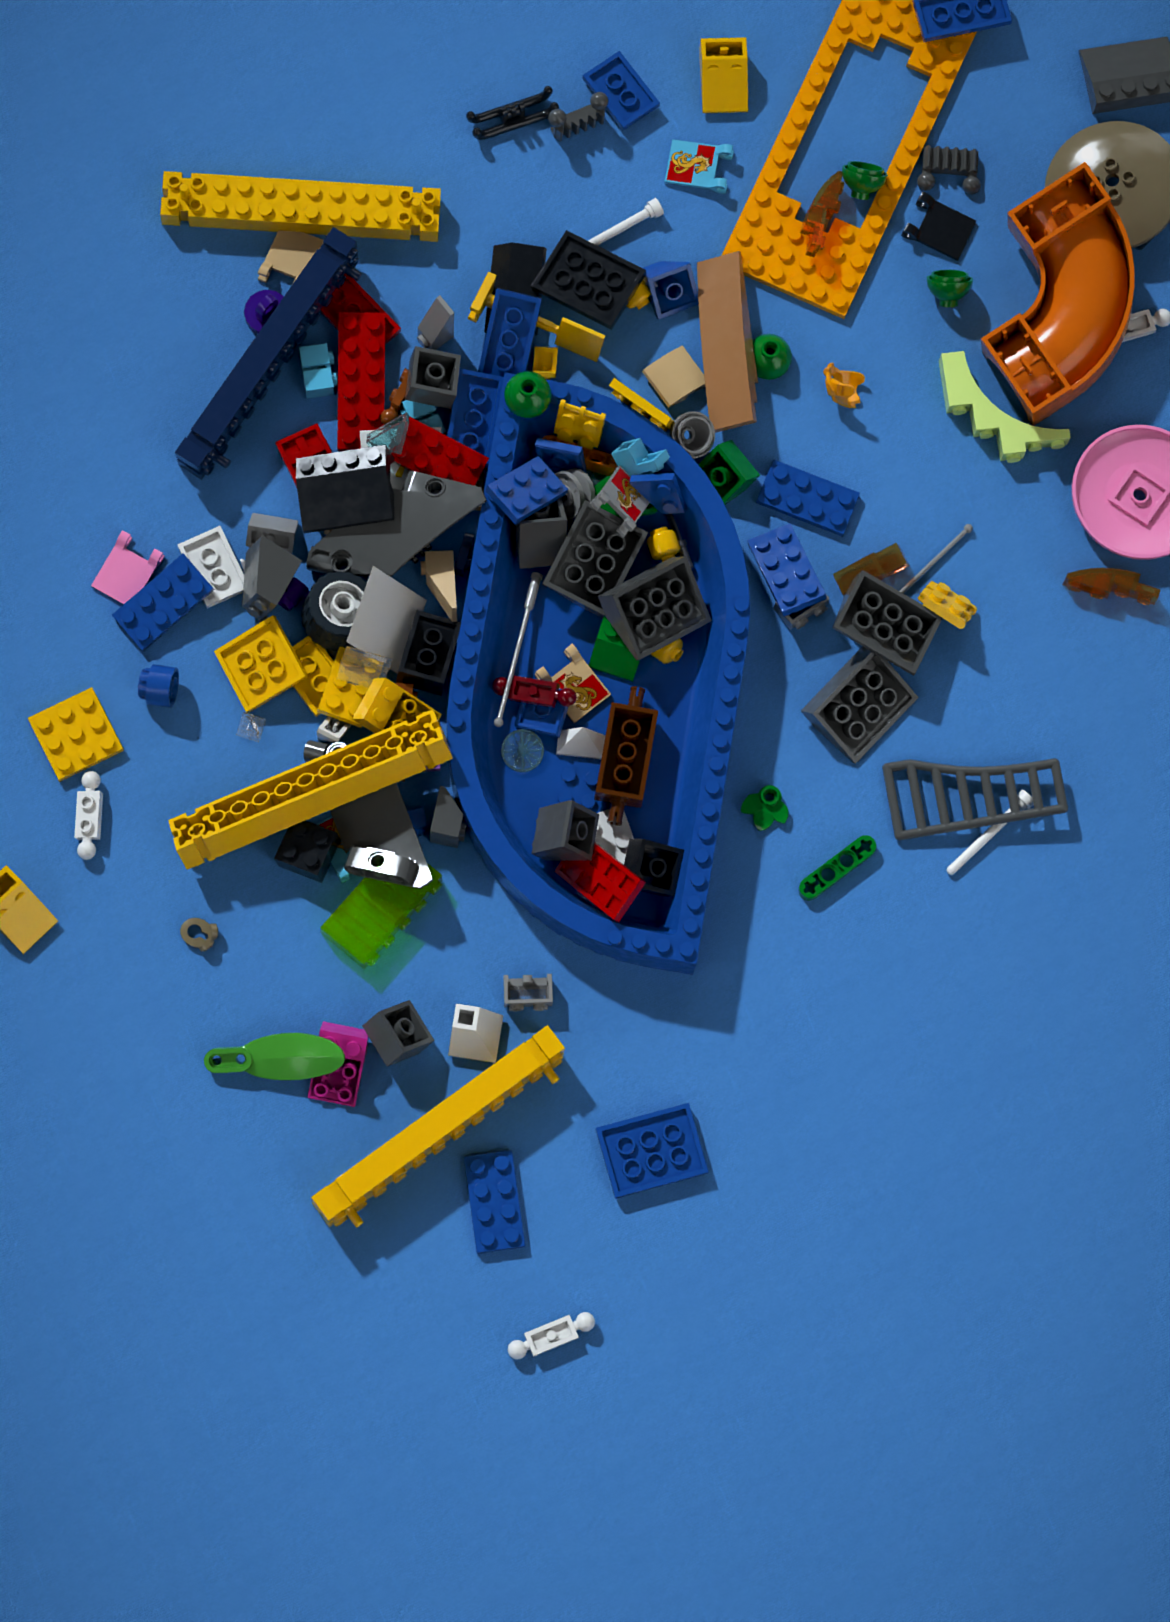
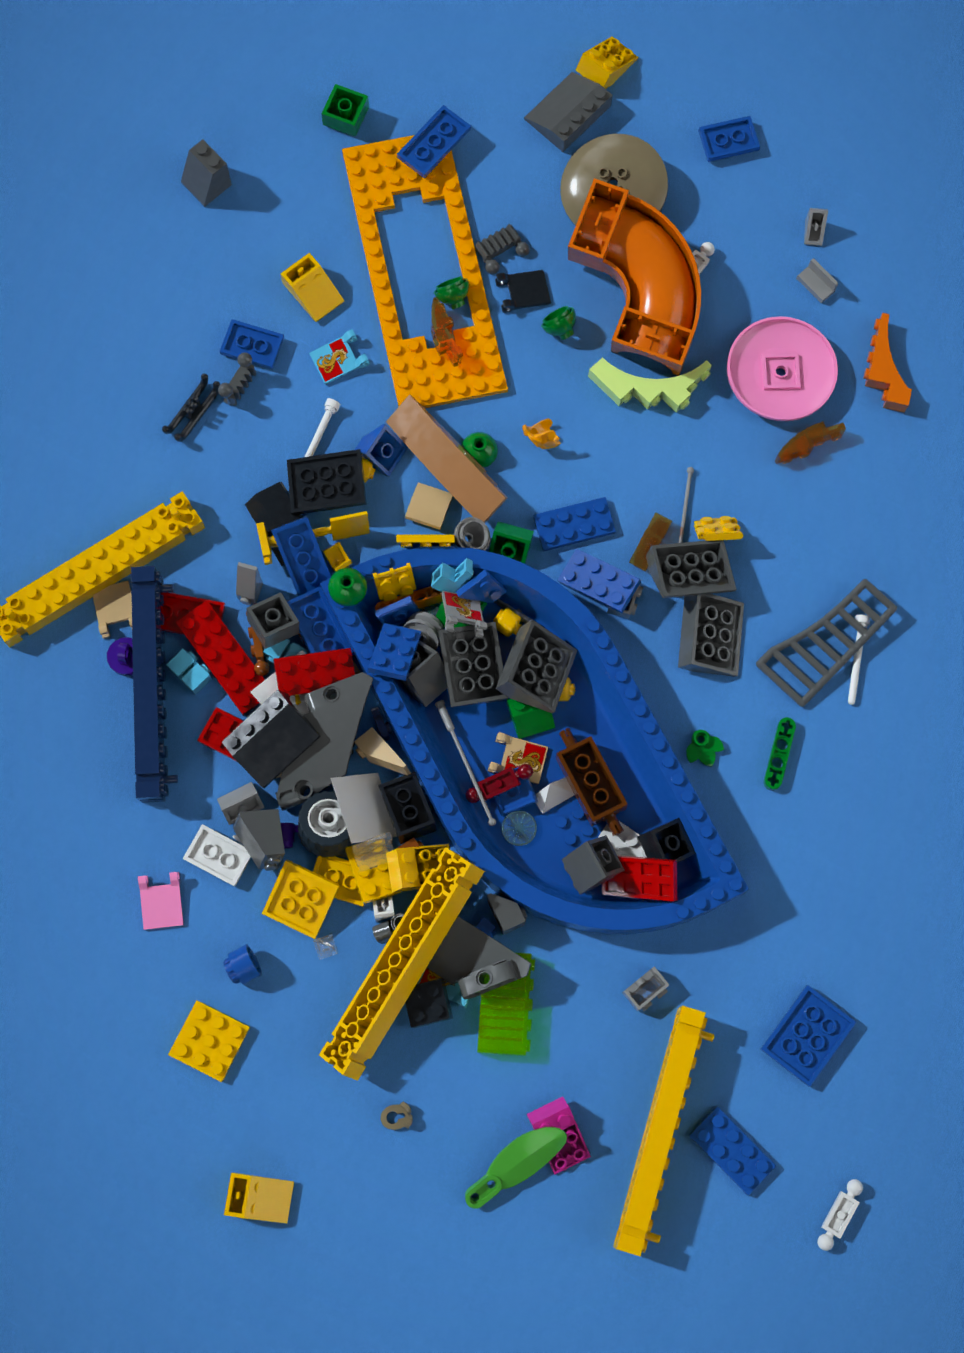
camera: 30 degrees left, 0 degrees up
(88, 815) = (260, 1091): white plate -> none
(163, 602) = (202, 905): blue plate -> none
(390, 434) = (274, 679): clear light blue slope -> none
(398, 1033) = (584, 1085): dark grey brick -> none
(475, 1033) = (634, 1045): white slope -> none

